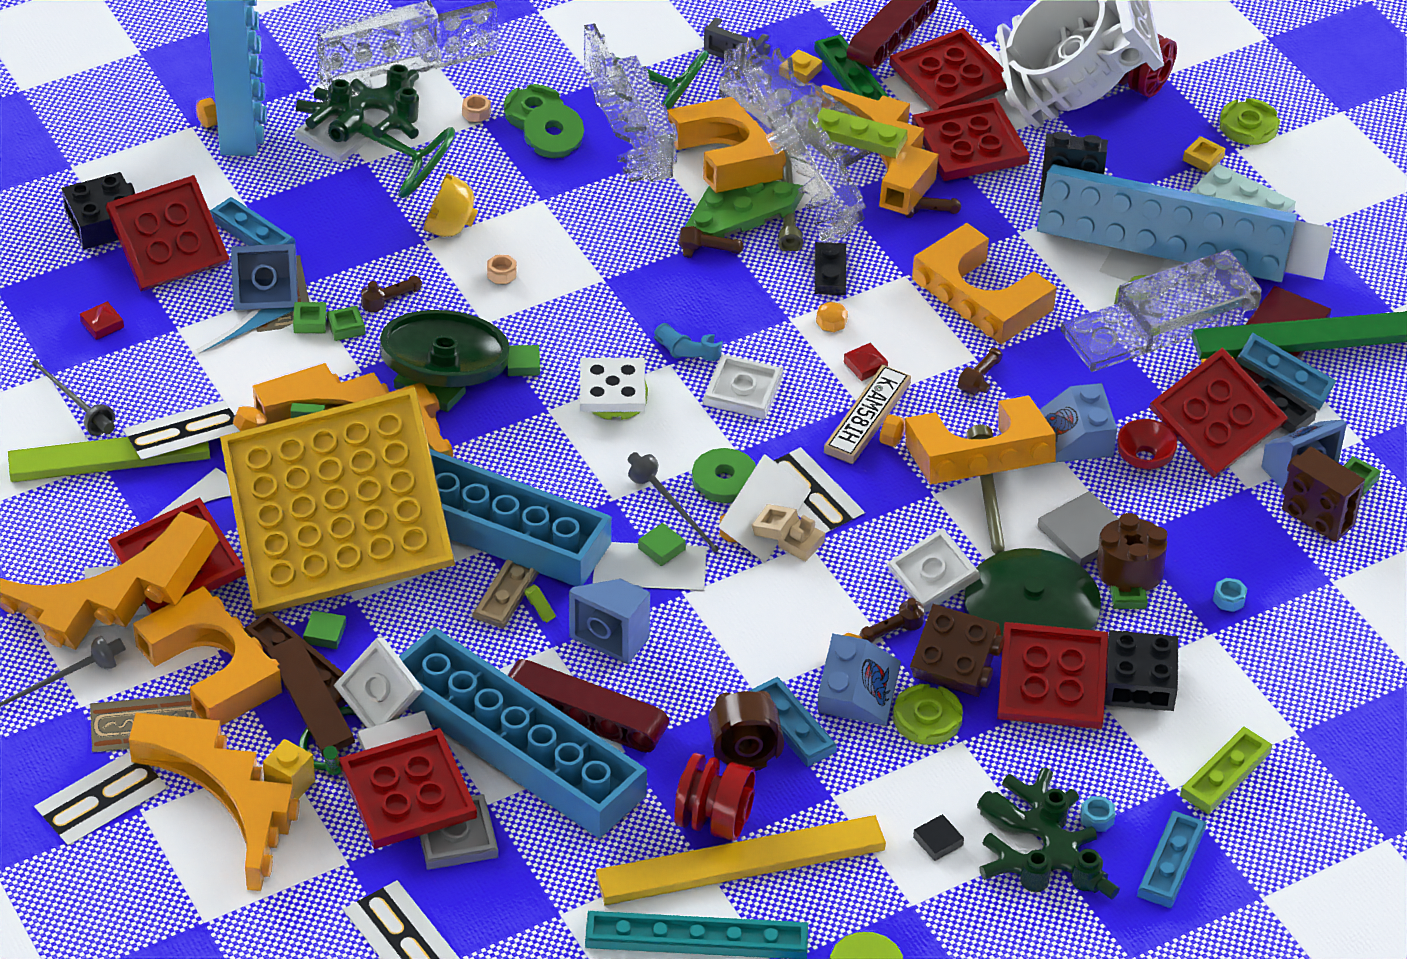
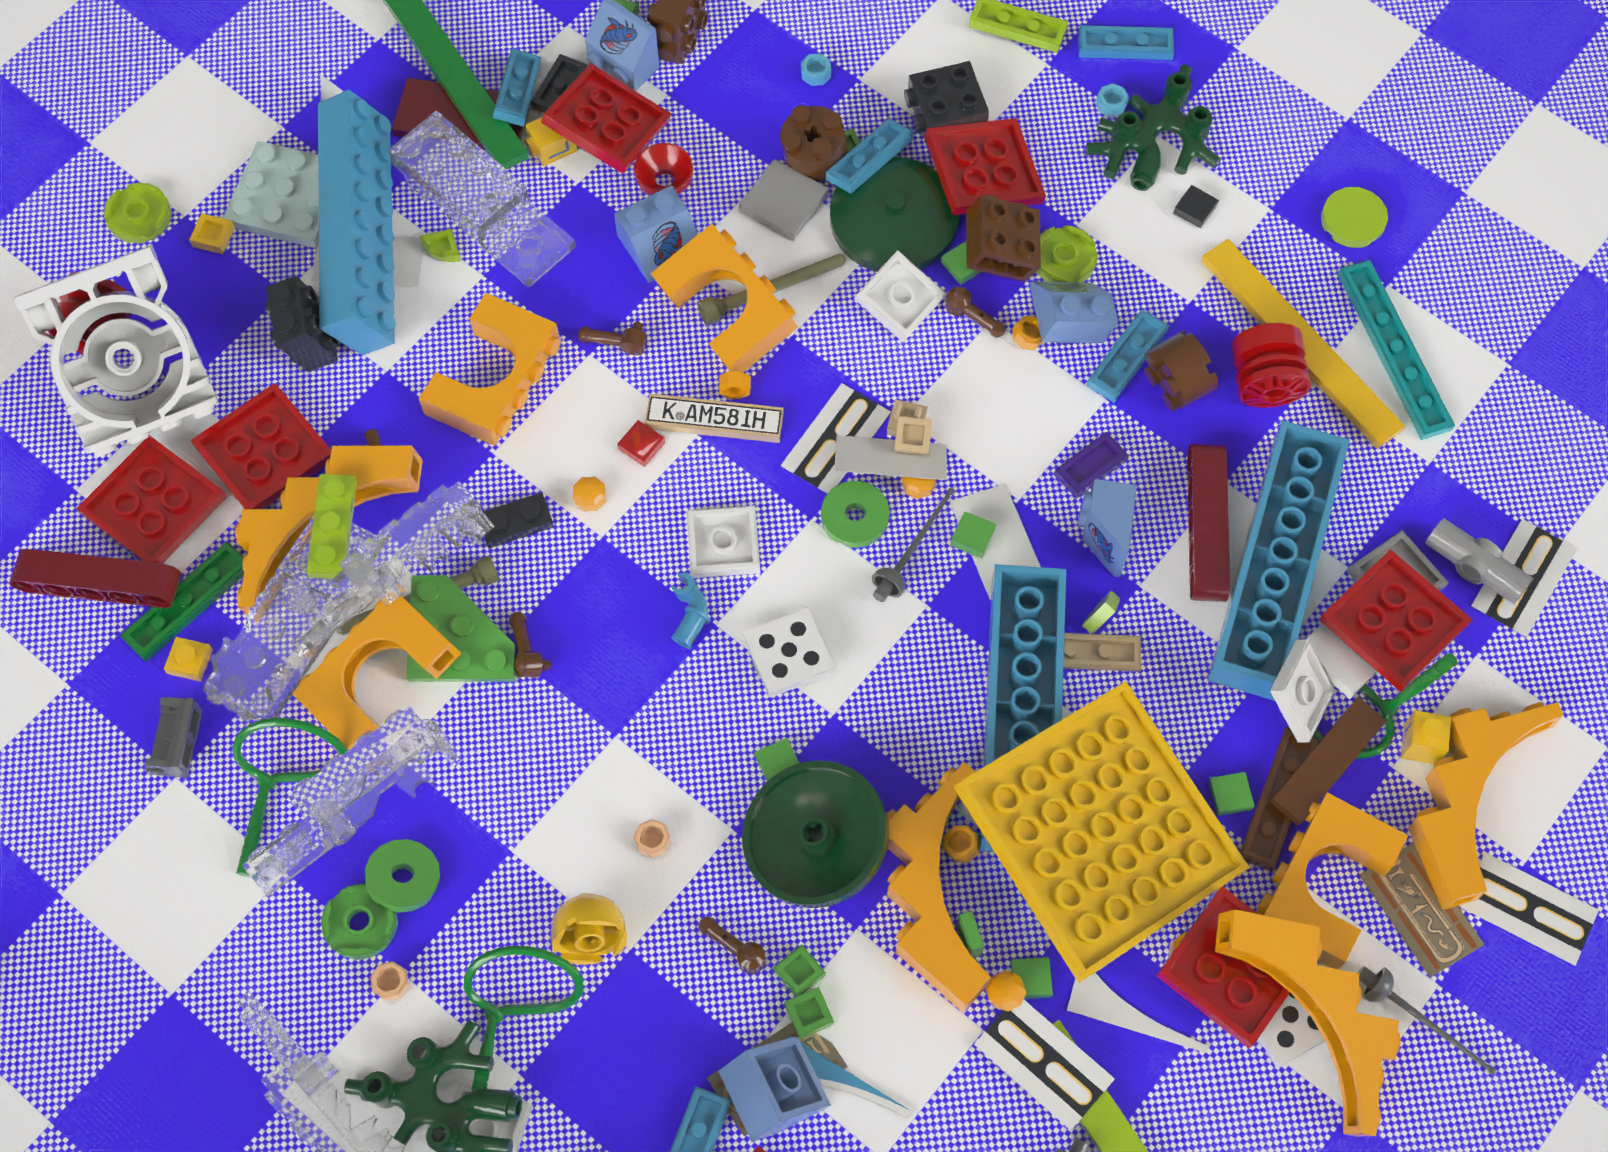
camera: 110 degrees left, 20 degrees up
(432, 889) = (1479, 561): none -> light grey piece
(689, 652) = (1091, 463): none -> dark purple tile
(1101, 592) = (869, 155): none -> dark azure tile

